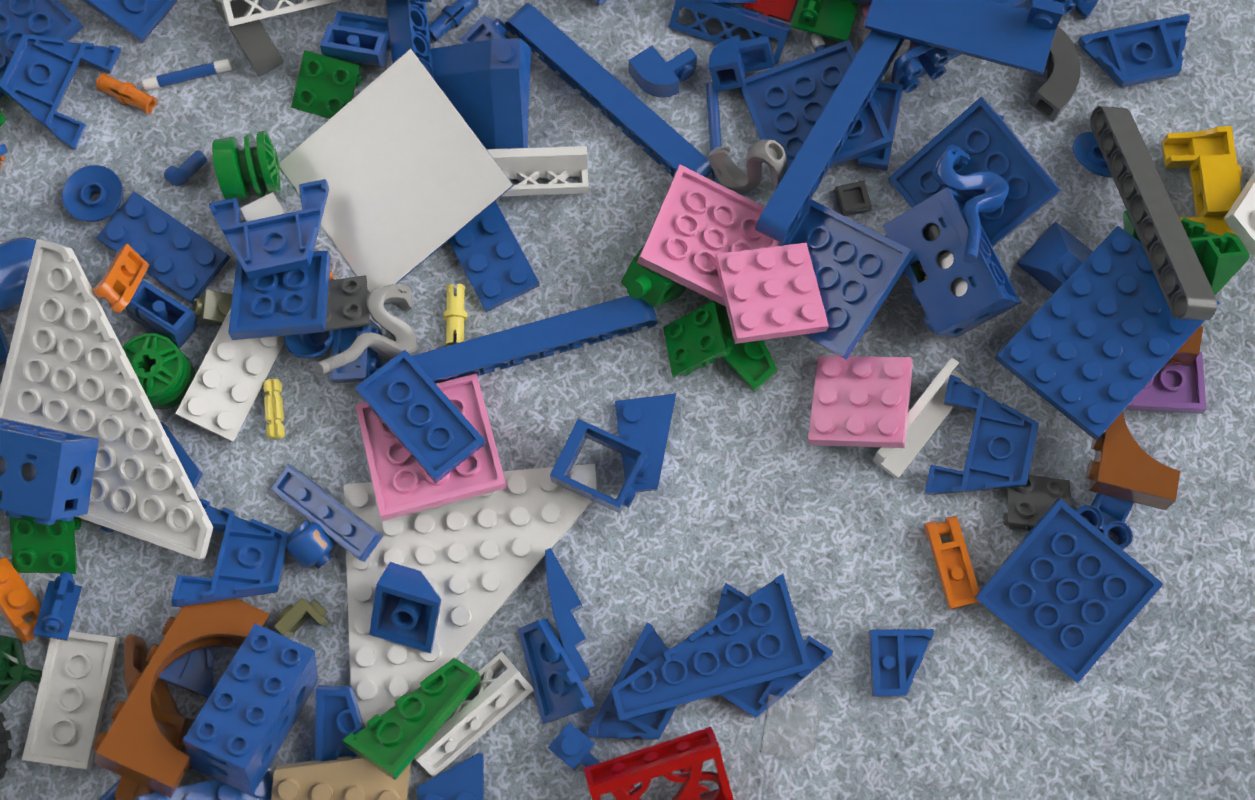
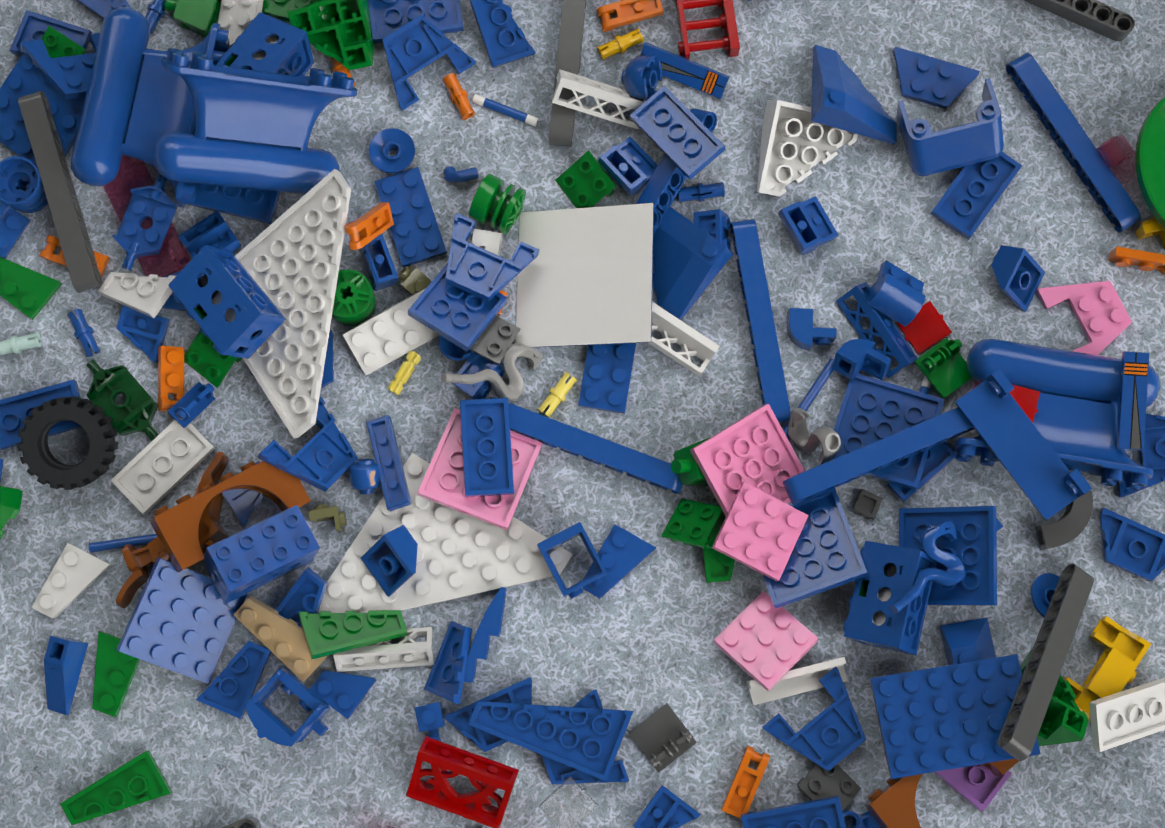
camera: 35 degrees right, 5 degrees up
(832, 581) = (662, 737): none -> dark grey hinge

